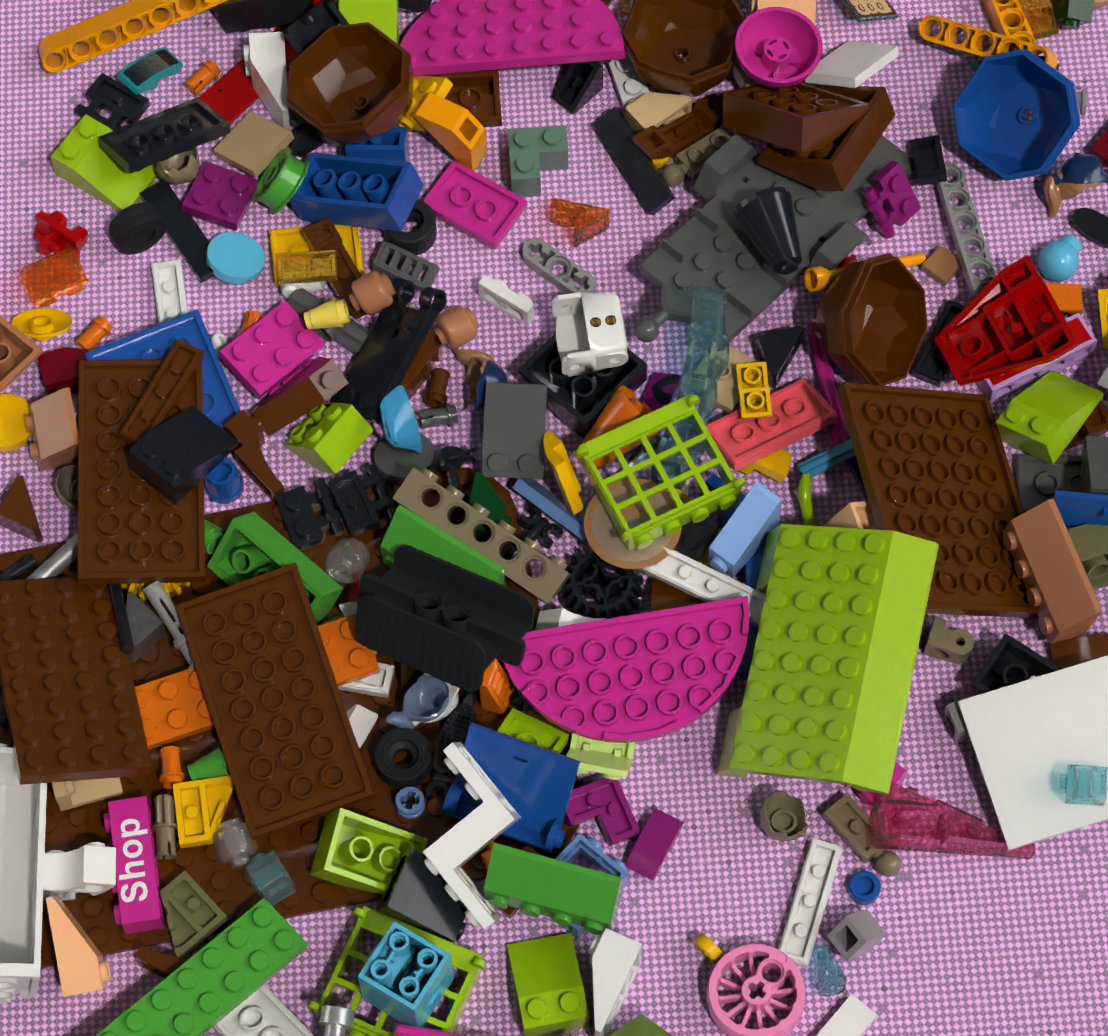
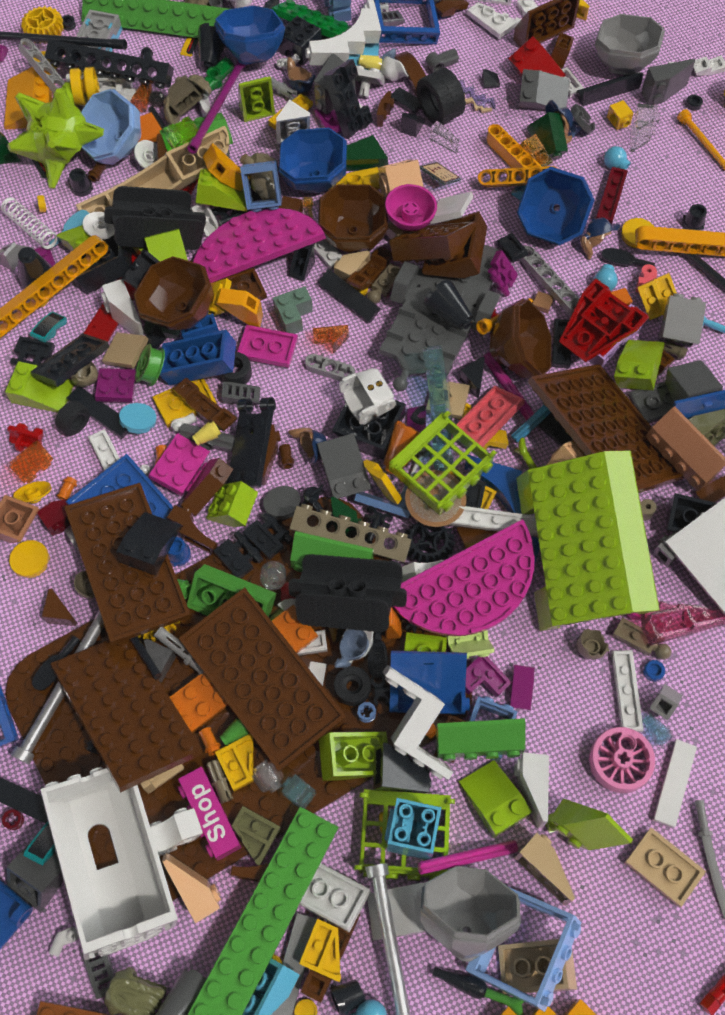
camera: 20 degrees left, 0 degrees up
(53, 431) = (62, 554): nougat slope -> none
(162, 391) = (123, 509): reddish brown tile -> none
(208, 72) = (83, 318): orange pin -> none
(306, 267) = (183, 409): clear yellow tile -> none
(372, 292) = (229, 411): nougat head -> none
(401, 422) = (273, 482): dark azure piece -> none
(439, 416) = (294, 472): dark grey pin -> none
(456, 327) = (284, 417): nougat head -> none
(500, 296) = (308, 394): white plate -> none
(708, 948) = (581, 740): yellow tile -> none
(745, 530) = (504, 480): light blue slope -> none
(753, 390) = (470, 401): yellow slope -> none

